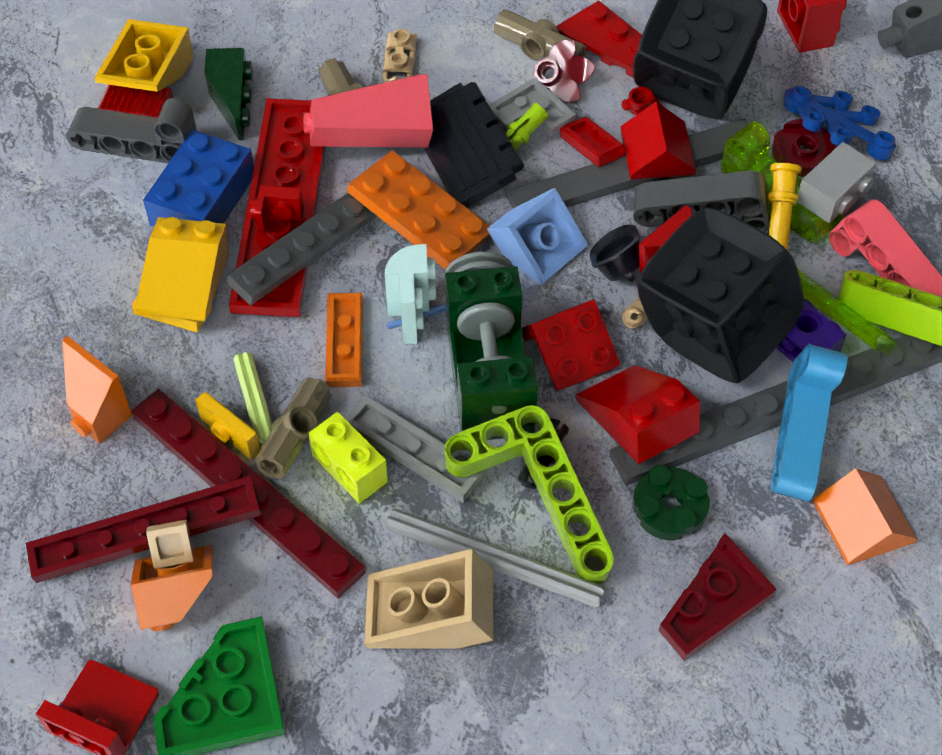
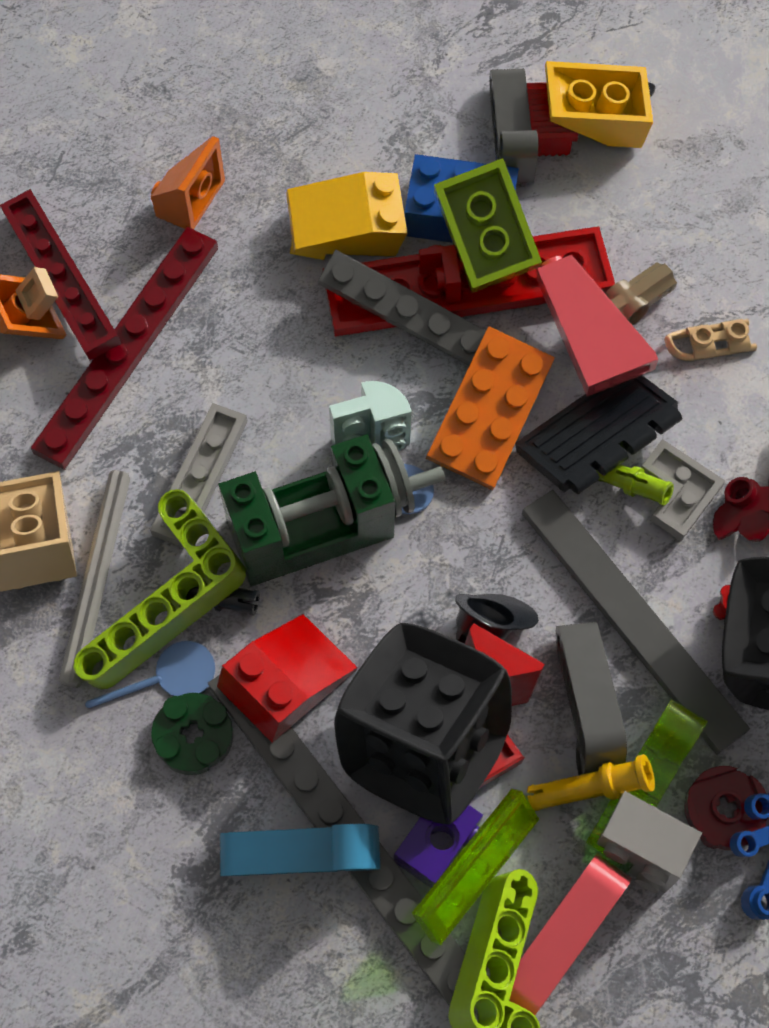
camera: 75 degrees right, 10 degrees up
(227, 85) = (610, 186): dark green slope -> none
(227, 426) = (186, 308): yellow plate -> none
(253, 395) = (227, 324): yellowish green axle -> none
(254, 150) = (487, 225): none -> lime brick
(292, 428) = (169, 356): dark tan piece -> none
(344, 340) = (316, 383): orange tile -> none
(348, 457) = (171, 418): neon yellow brick -> none
(538, 236) = (492, 533): light blue slope -> none
(573, 344) = (362, 594): red bracket -> none
(592, 141) = (652, 563): red plate -> none
(612, 505) = (179, 670): none -> medium blue piece
(657, 144) = (664, 634): red slope -> none
(716, 599) = (85, 796): dark red wing -> none
(863, 517) = (215, 943): slope -> none

